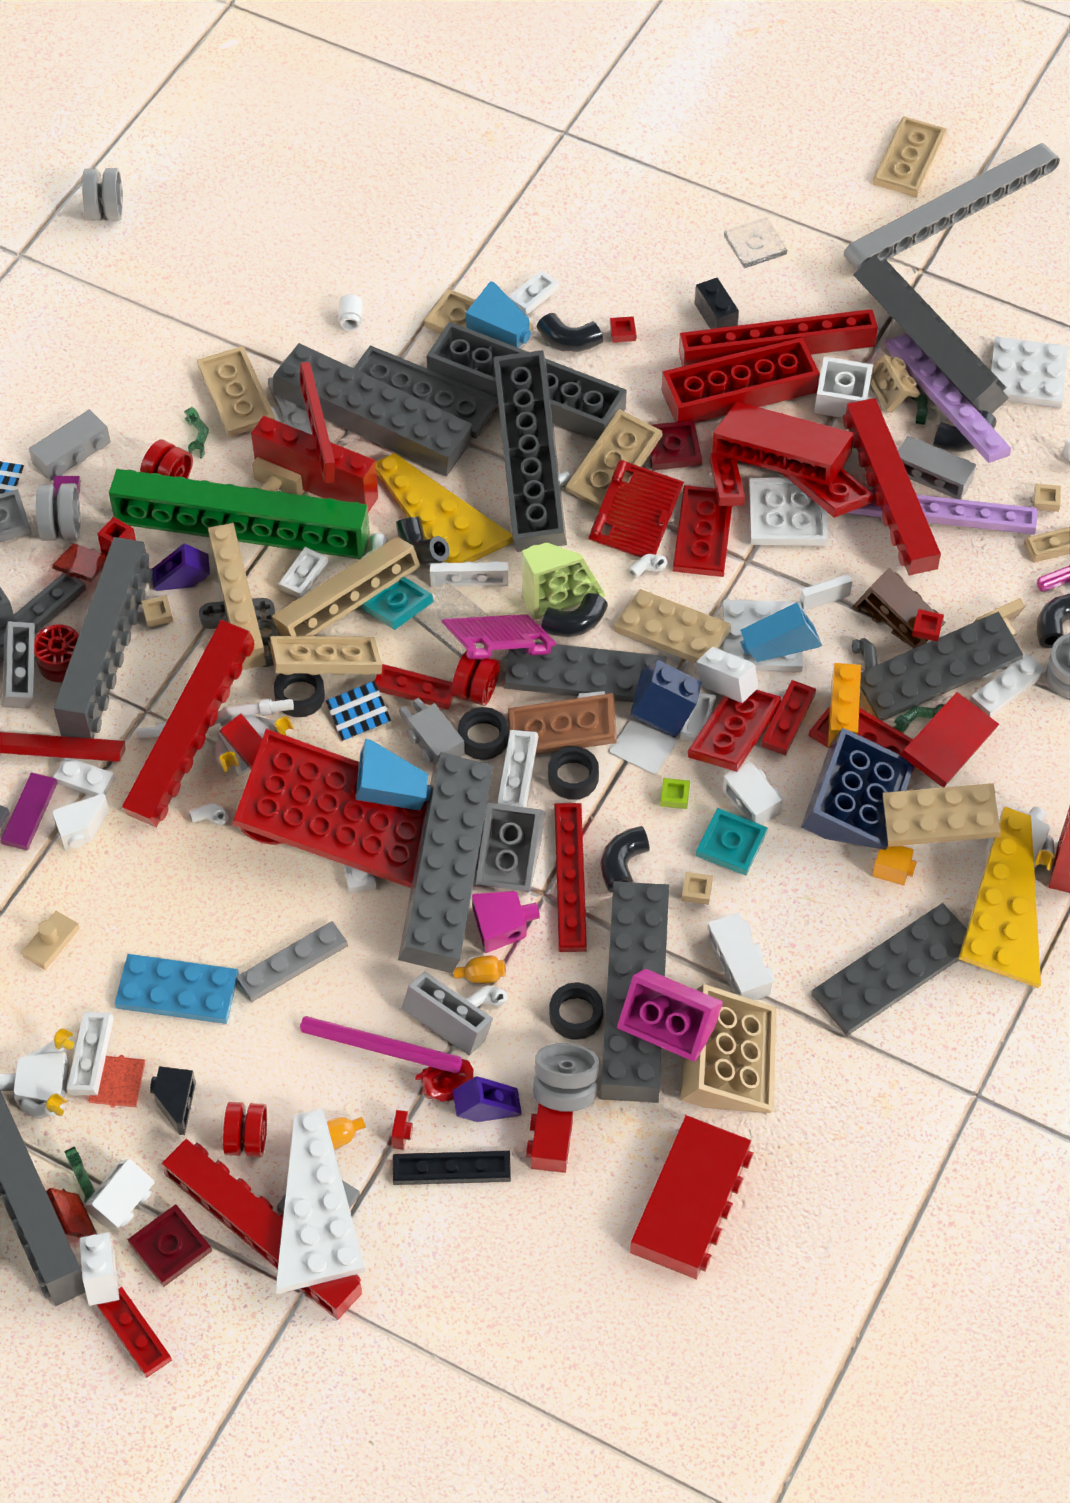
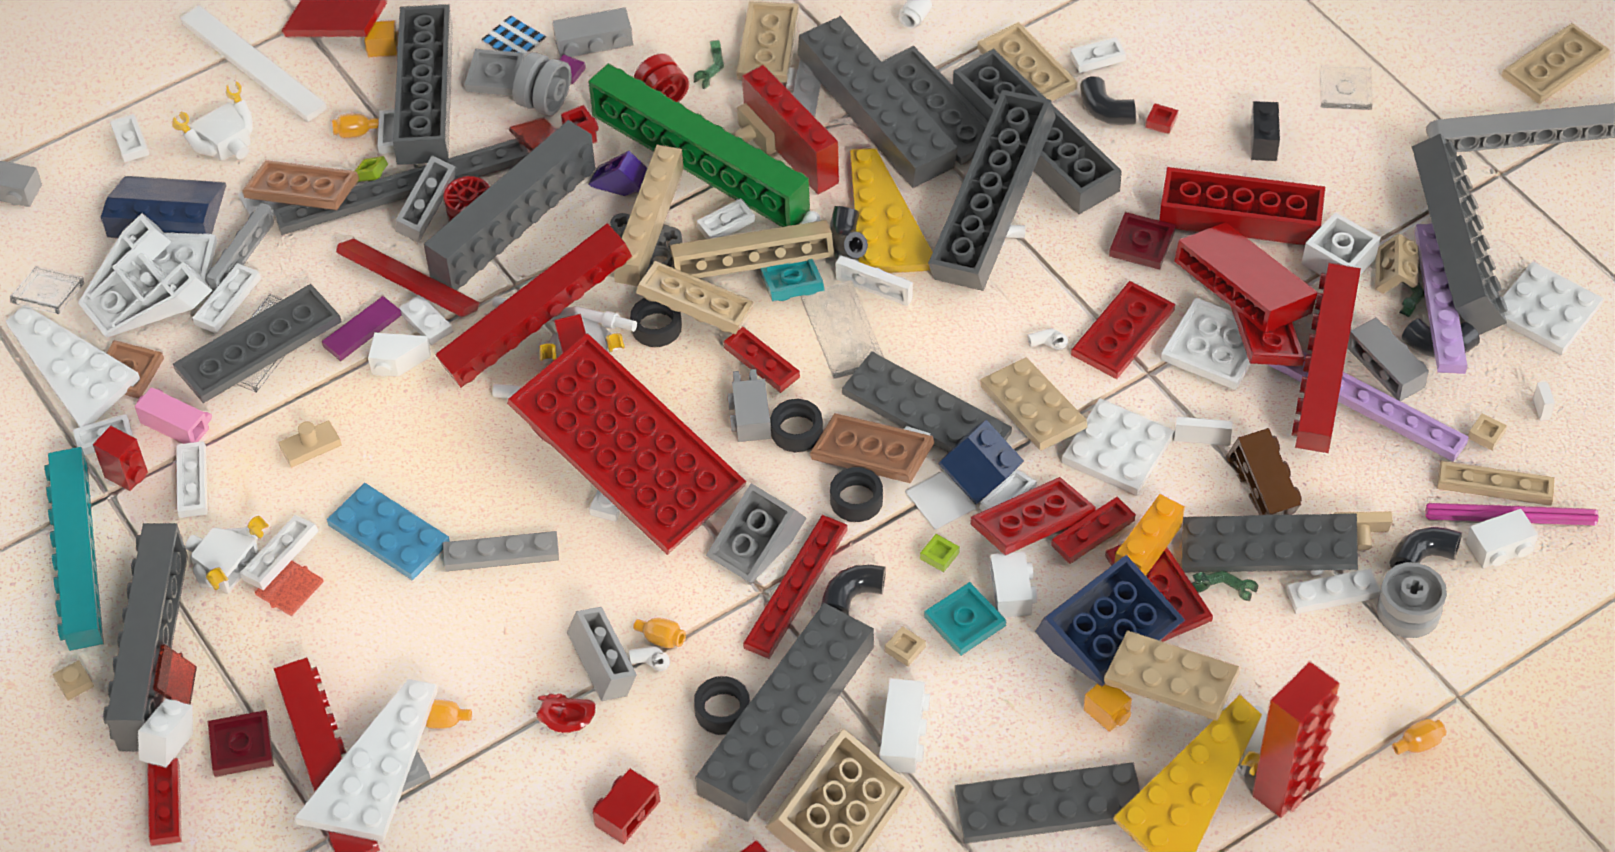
camera: 30 degrees right, 5 degrees down
(80, 1173) = (205, 633): clear green arm -> none
(120, 1194) = (225, 679): white brick -> none
(157, 611) = (577, 203): tan plate -> none
(174, 1095) = (325, 619): black slope -> none
(245, 1129) = (362, 673): red wheel -> none
(317, 422) = (801, 87): red tile -> none
(358, 710) = (698, 359): sticker -> none
(381, 1044) = (528, 656): dark pink axle -> none
(390, 779) = (674, 425): dark azure slope -> none
(401, 1130) = (498, 737): red plate -> none
(446, 863) = (681, 521): dark grey brick -> none
(451, 1167) = (524, 792): black tile -> none
(475, 679) = (817, 372): red wheel -> none
(486, 1100) = (589, 746): dark purple slope -> none
(498, 317) = (1042, 62): dark azure slope -> none
(499, 634) = (861, 341): dark pink window -> none
(501, 918) = (706, 594): dark pink torso -> none
(518, 768) = (805, 469): white plate -> none
(555, 579) = (945, 315): yellowish green wedge -> none
(565, 1076) = (667, 755): light grey wheel -> none
(577, 621) = (946, 362): black cylinder -> none
(623, 439) = (1073, 232): tan plate -> none
(636, 510) = (1066, 284): red window -> none
(669, 1014) = (790, 738): dark pink slope -> none
(727, 481) = (1170, 291): red plate -> none
(727, 674) = (1053, 464): white brick -> none
(780, 634) = (1127, 448): dark azure slope -> none
(820, 334) = (1344, 189): red brick -> none
(867, 649) = (1211, 500): dark grey arm -> none
(928, 625) = (1276, 497): red plate -> none
(949, 739) = (1235, 614): red tile -> none

